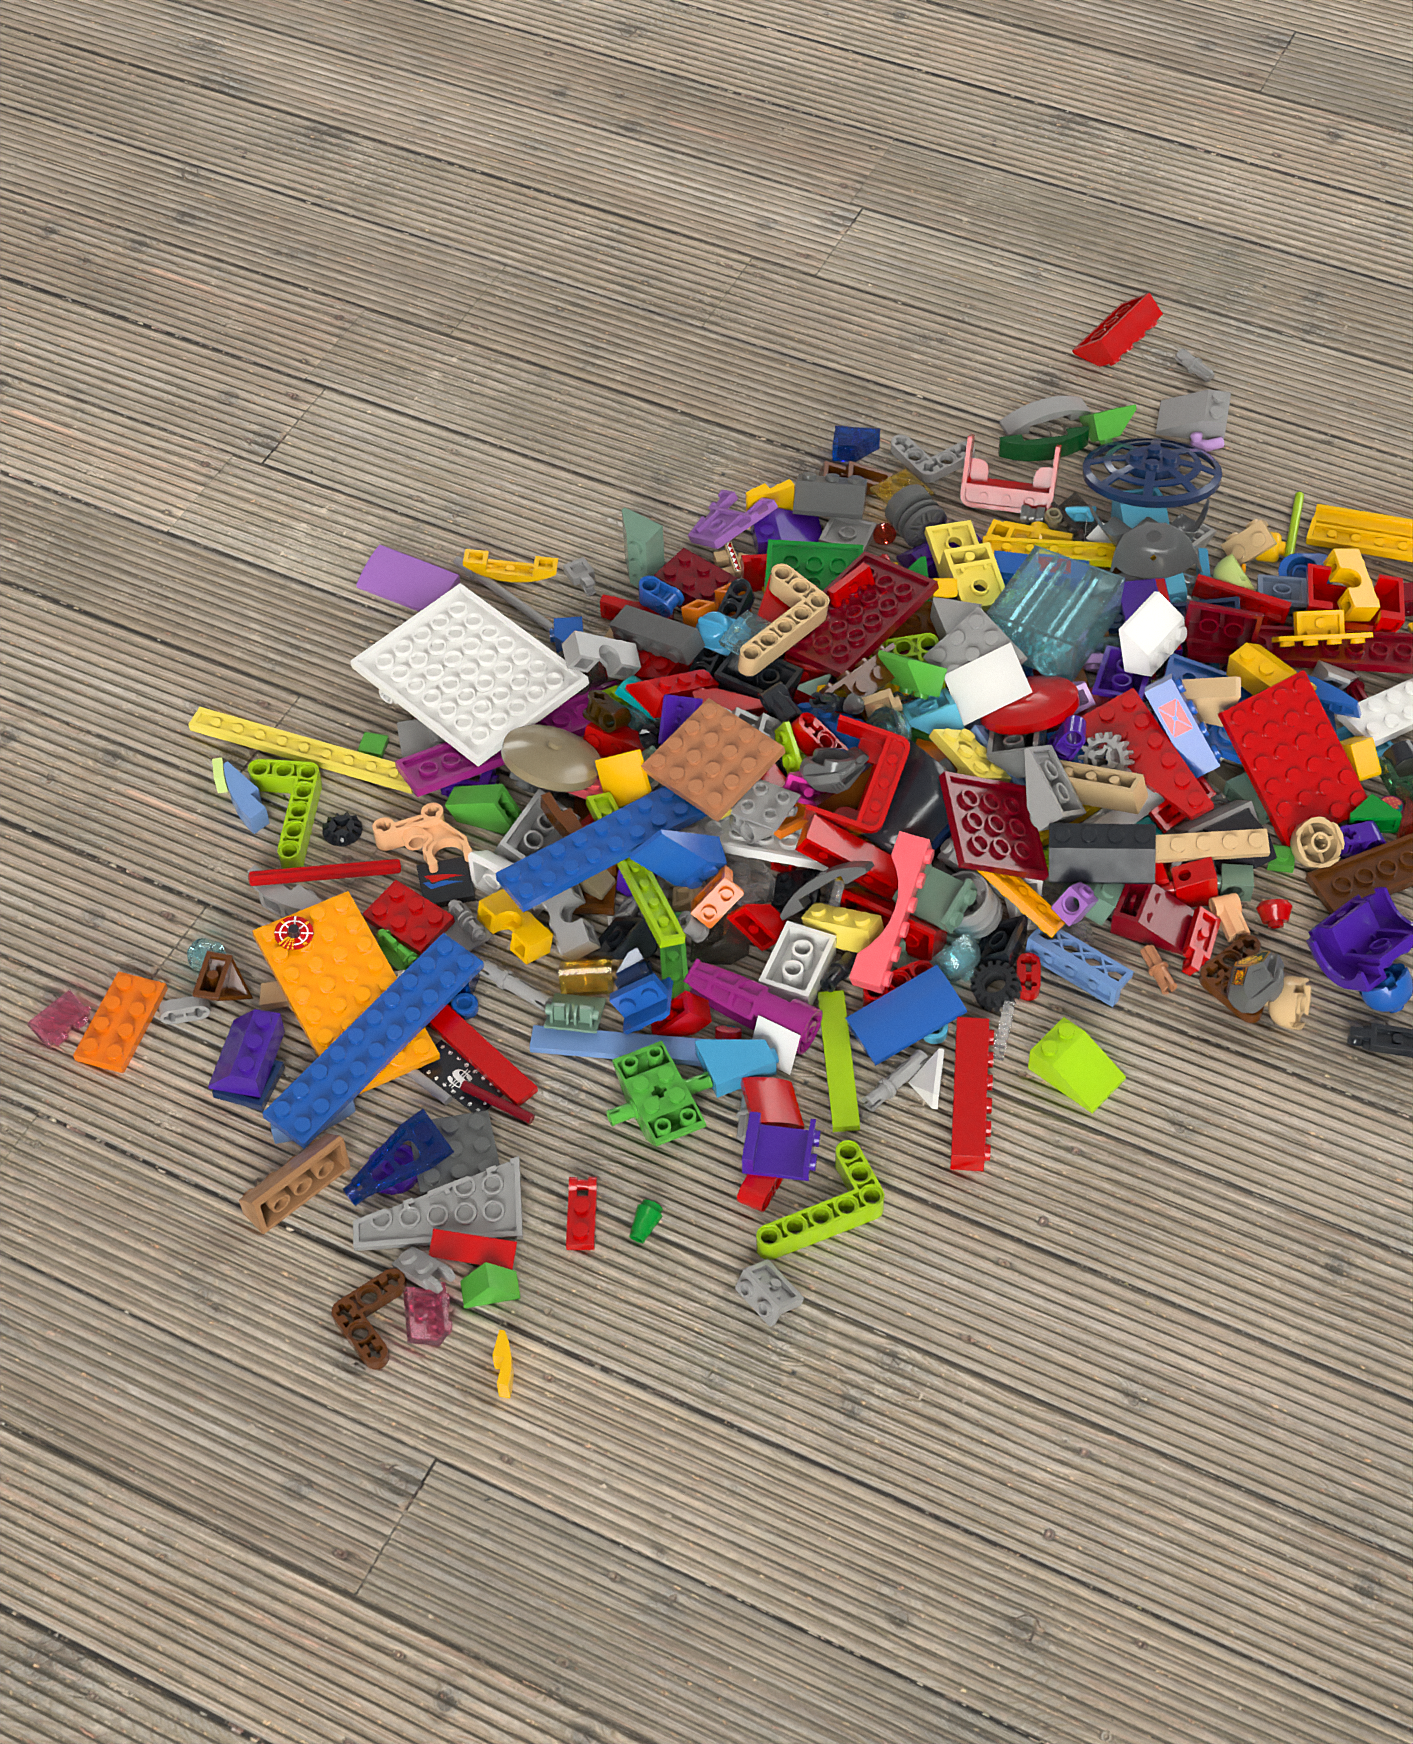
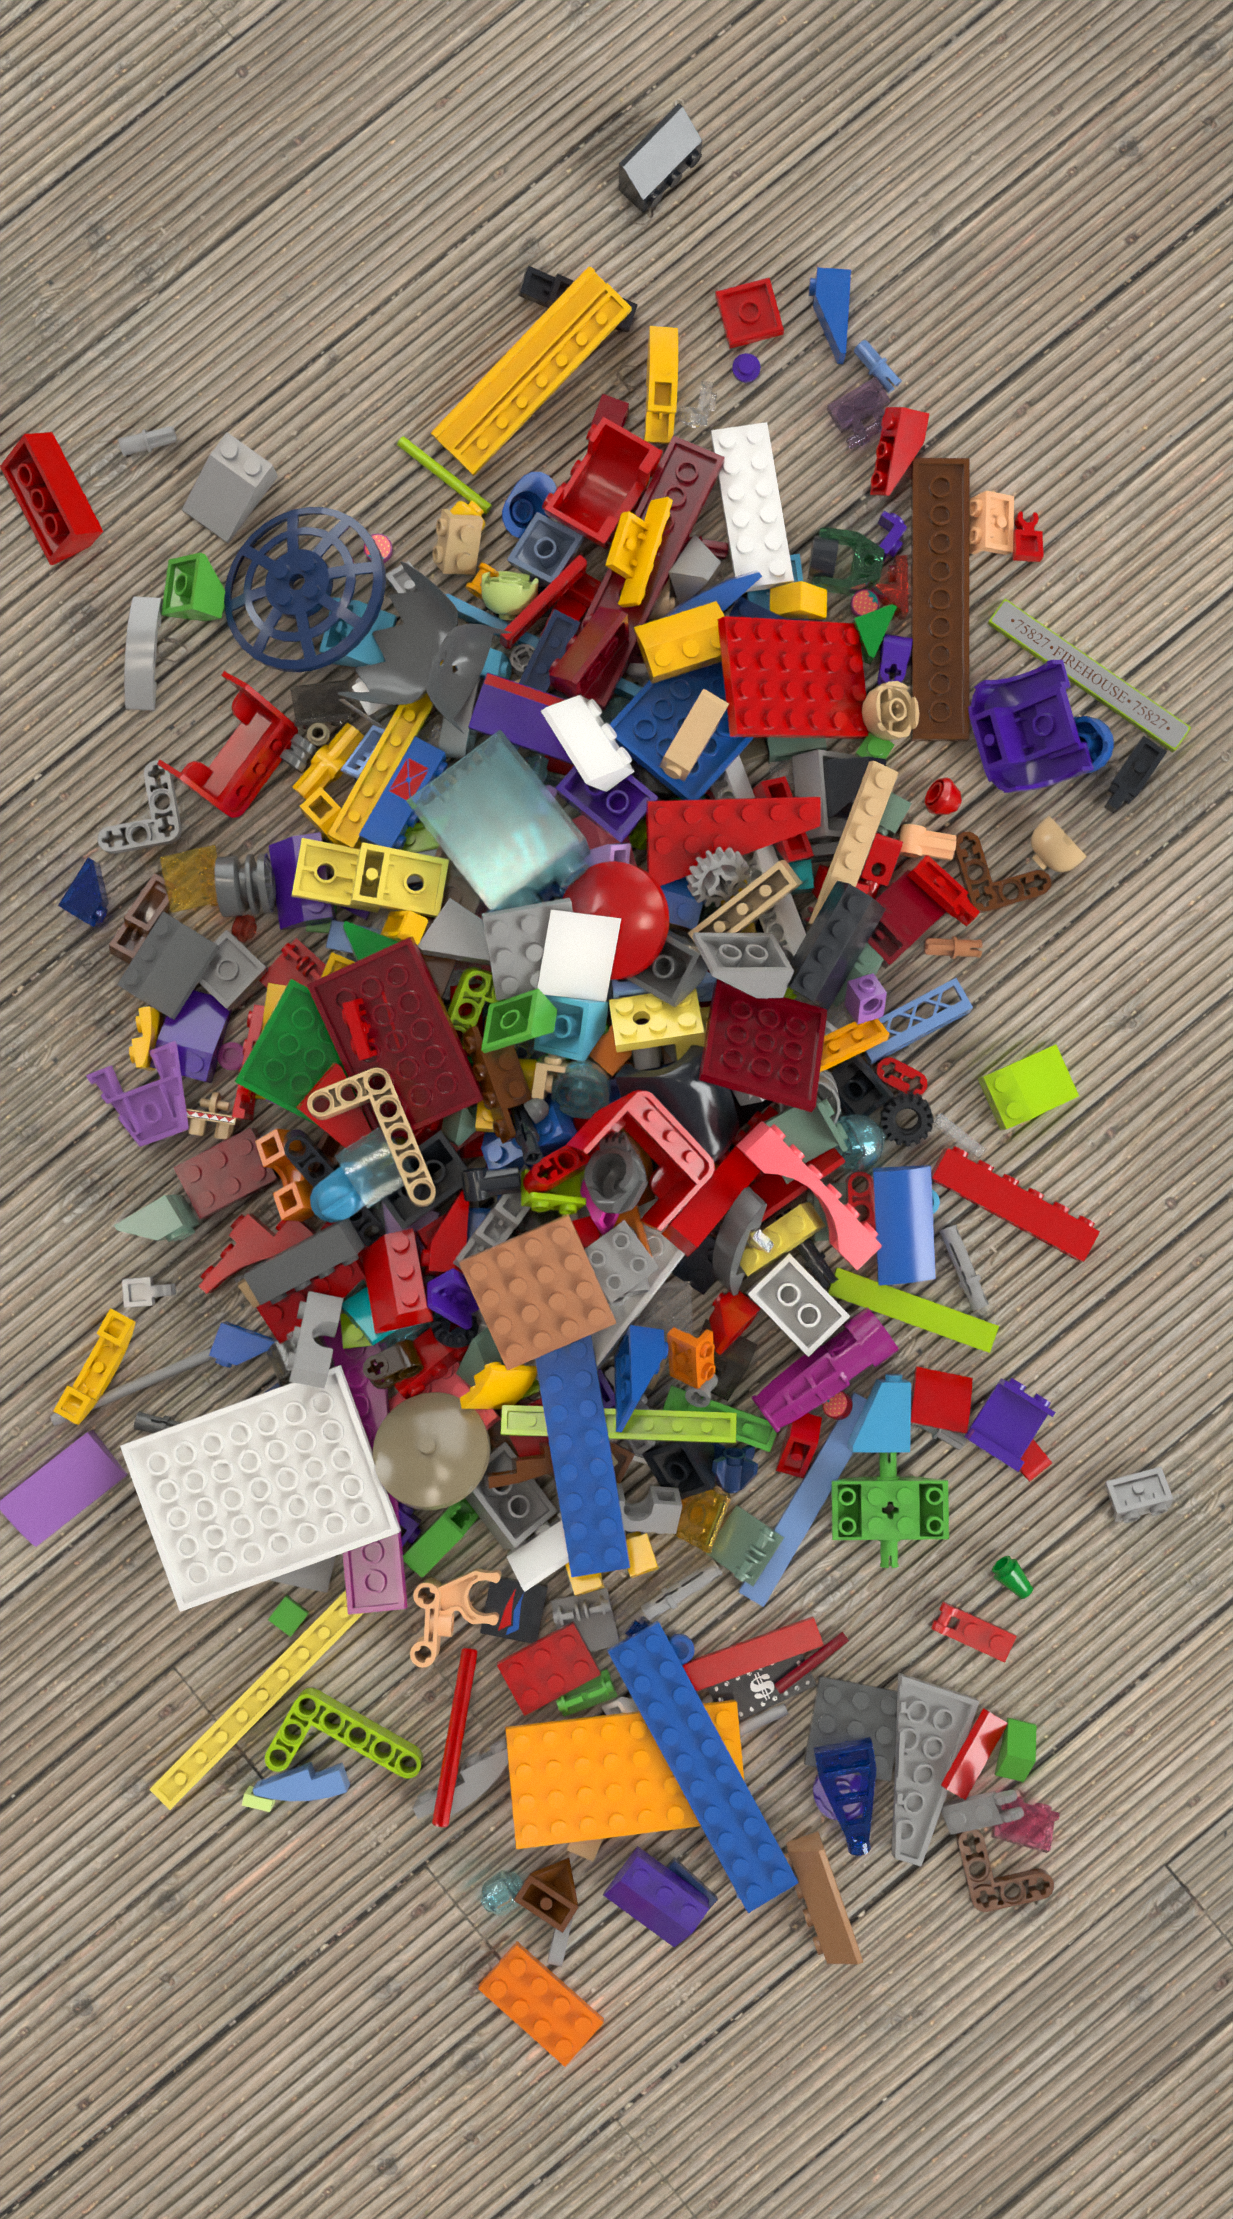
camera: 70 degrees left, 35 degrees up
(59, 1019) = (516, 2068): clear pink bracket -> none
(293, 933) = (540, 1807): red piece -> none
(342, 837) = (396, 1678): black gear -> none
(503, 1360) = (1103, 1769): yellow slope -> none
(643, 1002) = (778, 1476): blue bracket -> none
(659, 596) = (243, 1228): blue piece -> none
(781, 1039) = (879, 1370): white sticker -> none
(830, 1210) = (1082, 1400): lime beam -> none
(928, 1079) = (977, 1234): white slope -> none
(1043, 449) = (184, 714): dark green slope -> none
(1069, 737) = (684, 907): dark purple piece -> none
(1080, 514) = (325, 698): medium azure slope -> none
(1182, 725) = (719, 777): brick -> none
(1206, 445) = (274, 501): lavender arm -> none
(1215, 511) = (384, 545): none -> tile
(1255, 981) = (1034, 871): dark grey helmet -> none
(1359, 598) = (605, 475): yellow arch -> none

